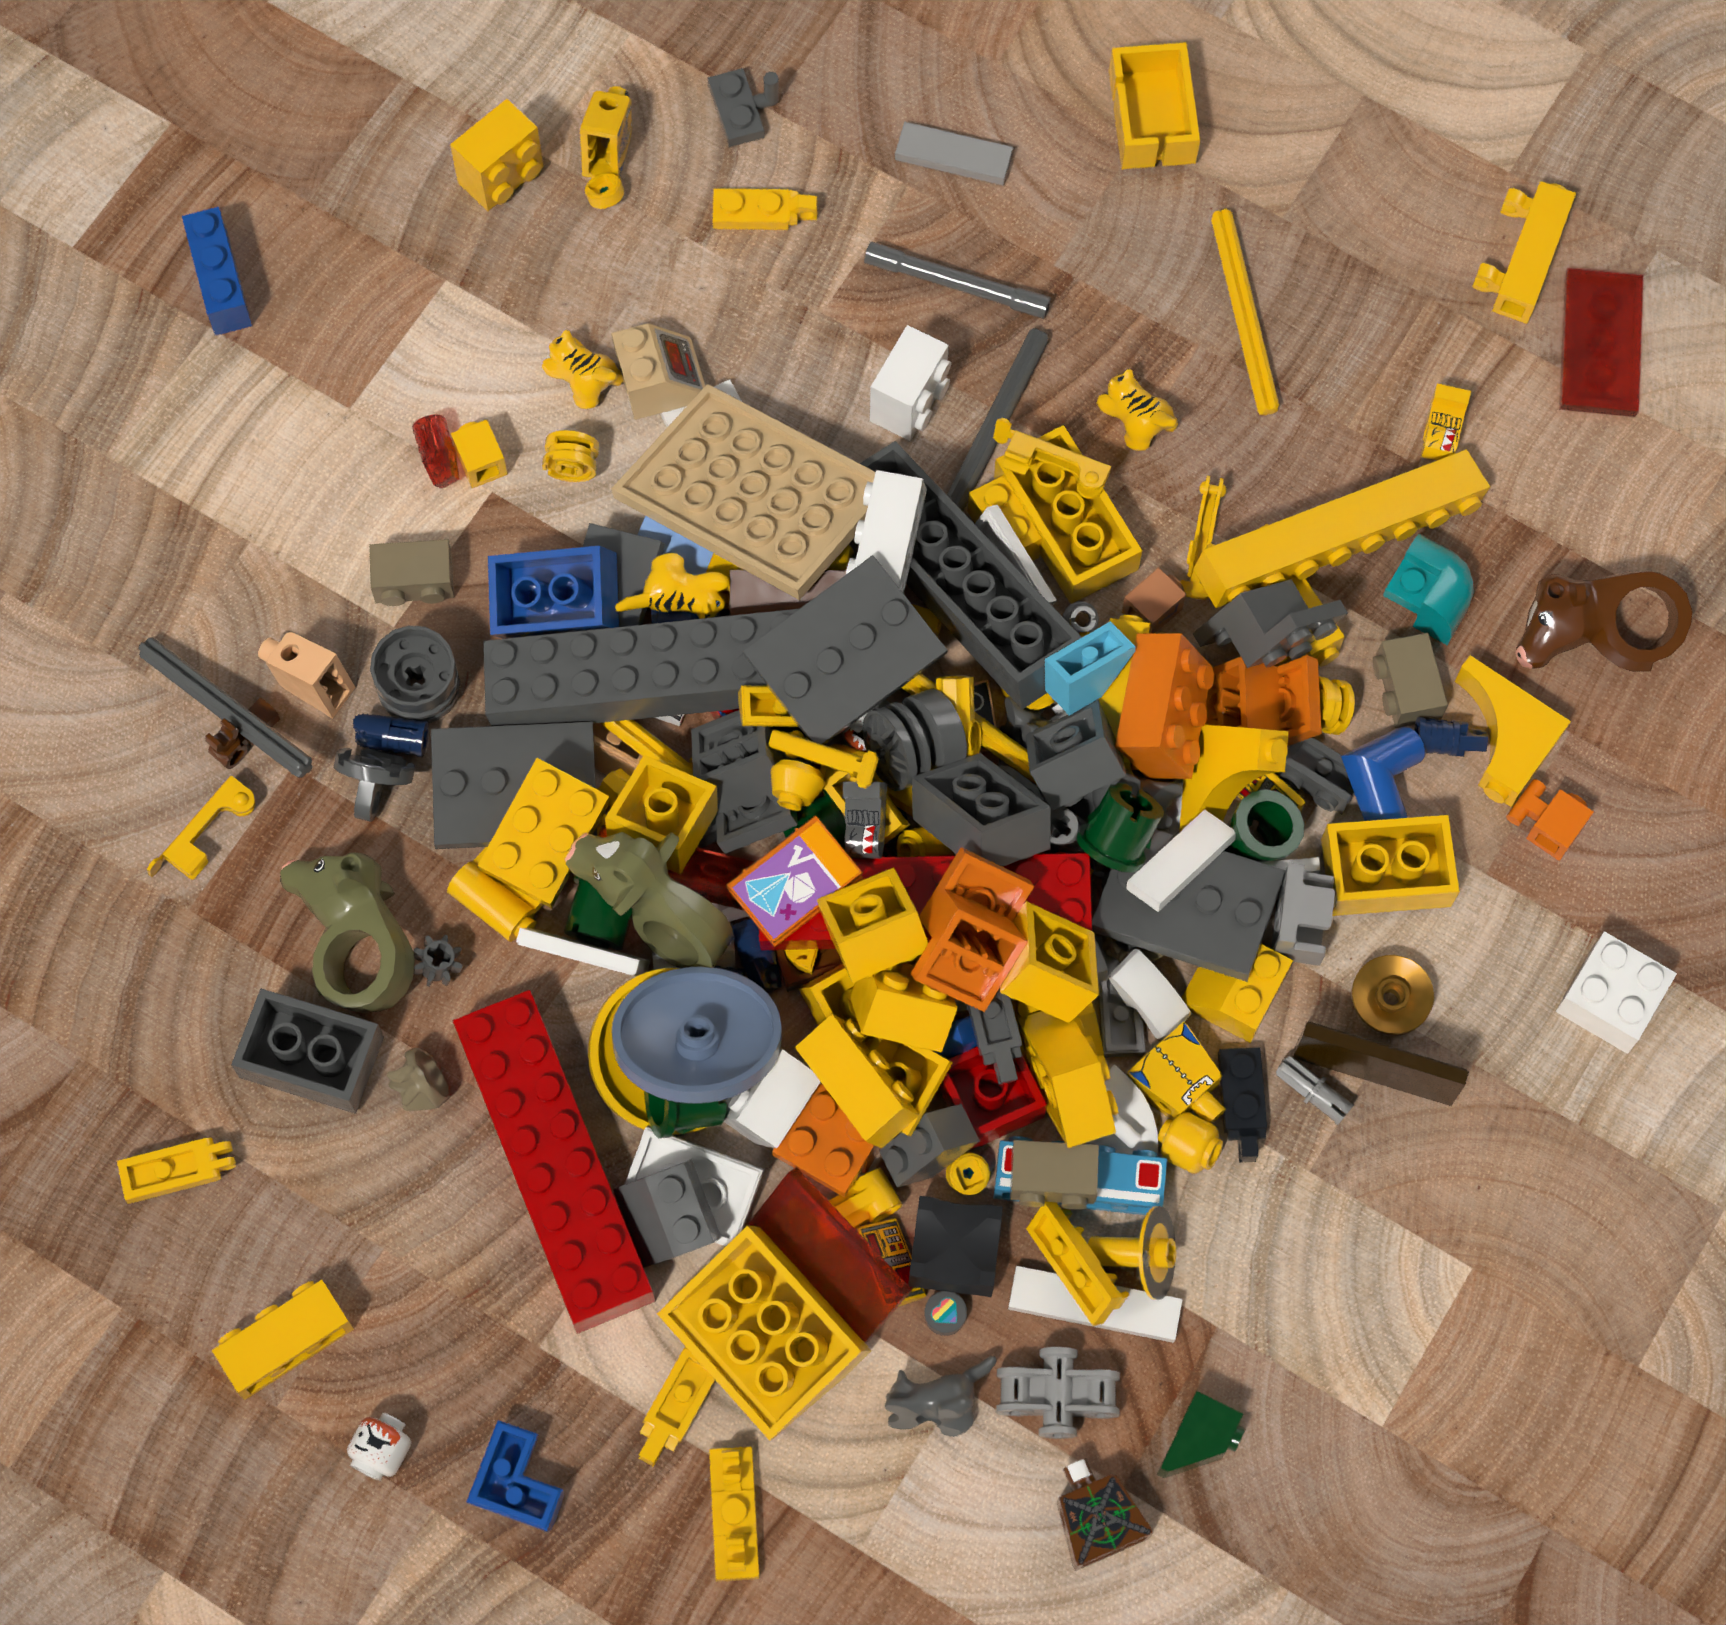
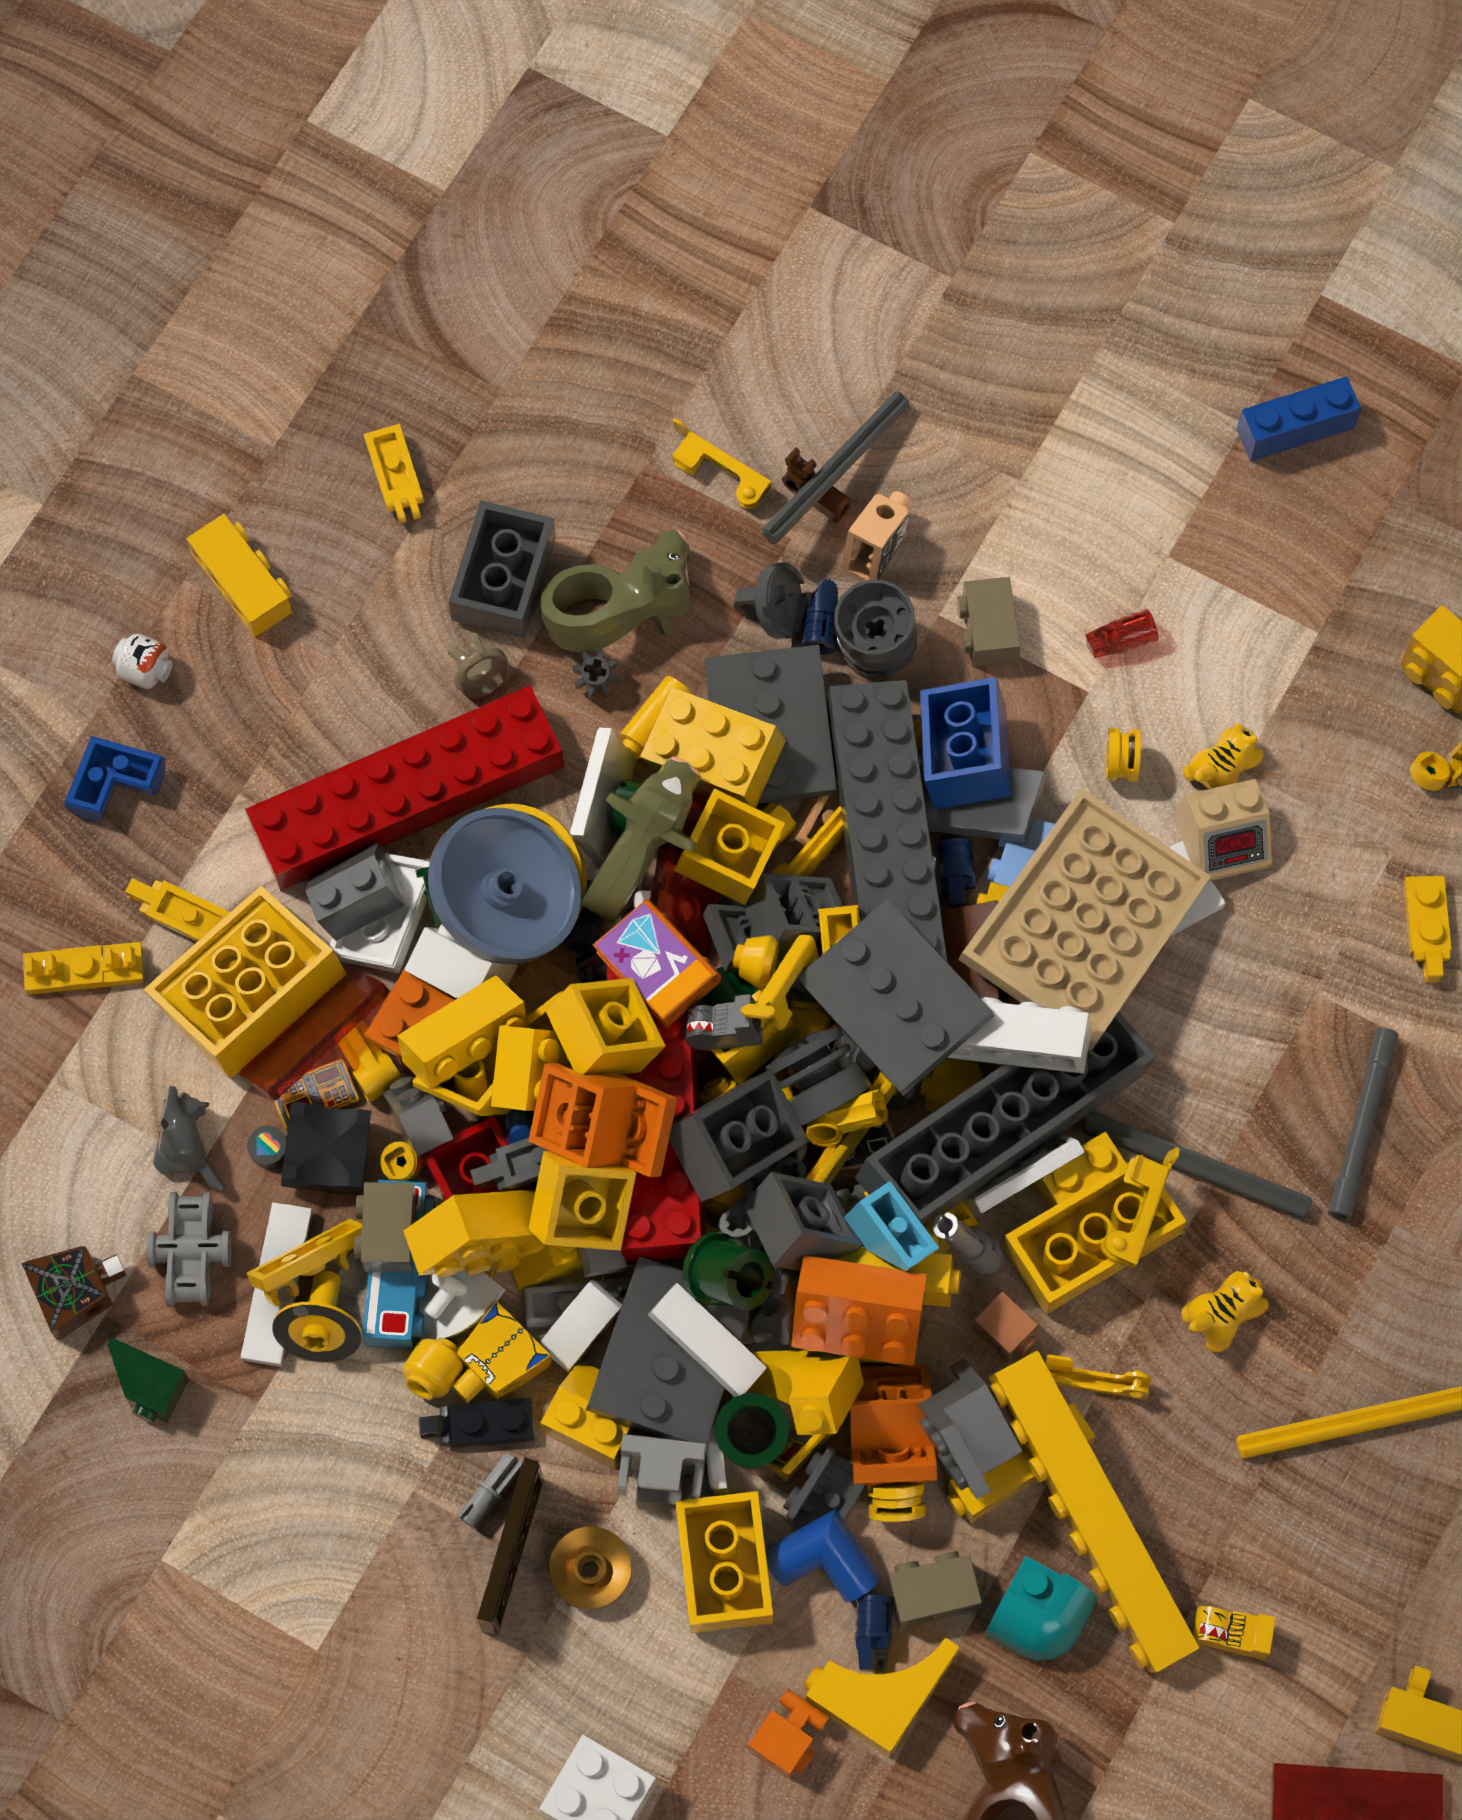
camera: 90 degrees right, 0 degrees up
(479, 453) = (1122, 672): yellow brick -> none
(674, 589) = (975, 850): yellow animal -> none
(910, 383) = (1226, 1071): white brick -> none

